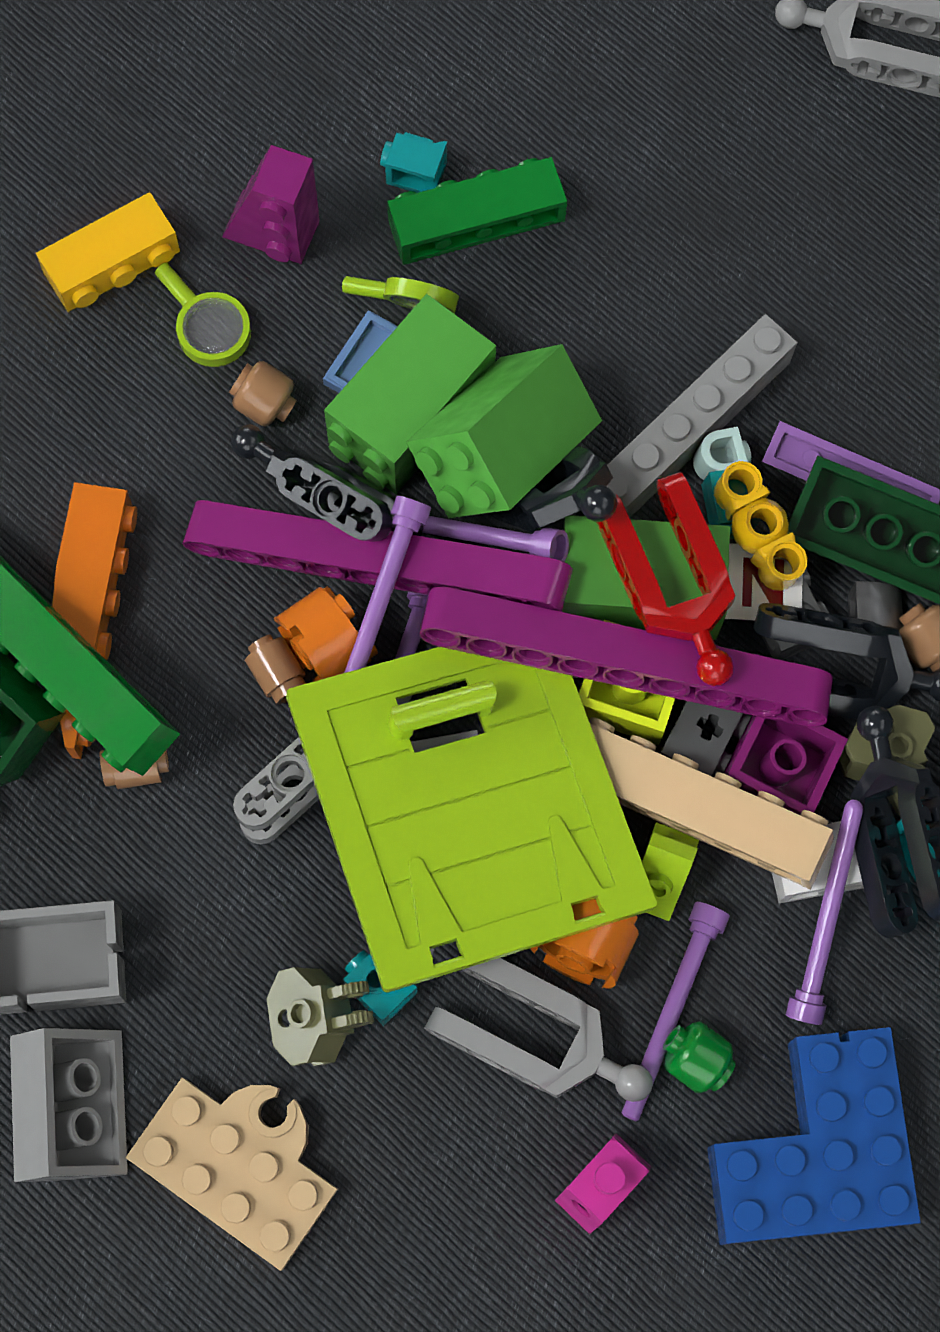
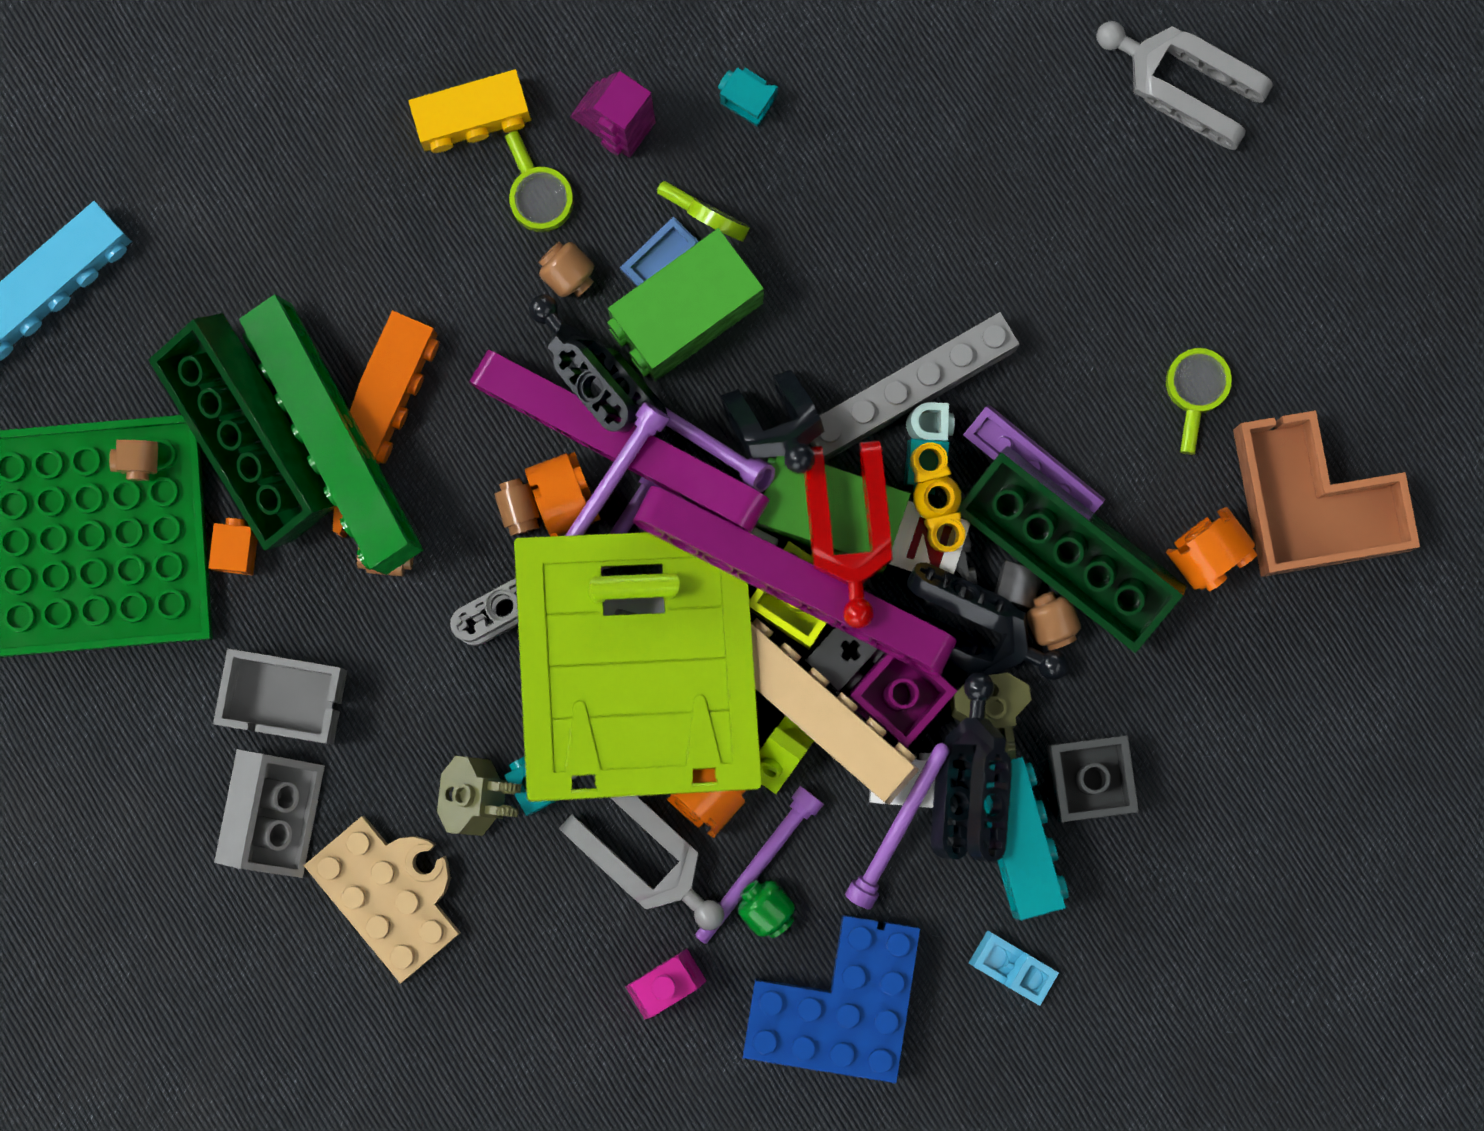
camera: 20 degrees right, 10 degrees up
(477, 210) = (788, 150): green brick -> none
(504, 432) = (749, 365): bright green brick -> none

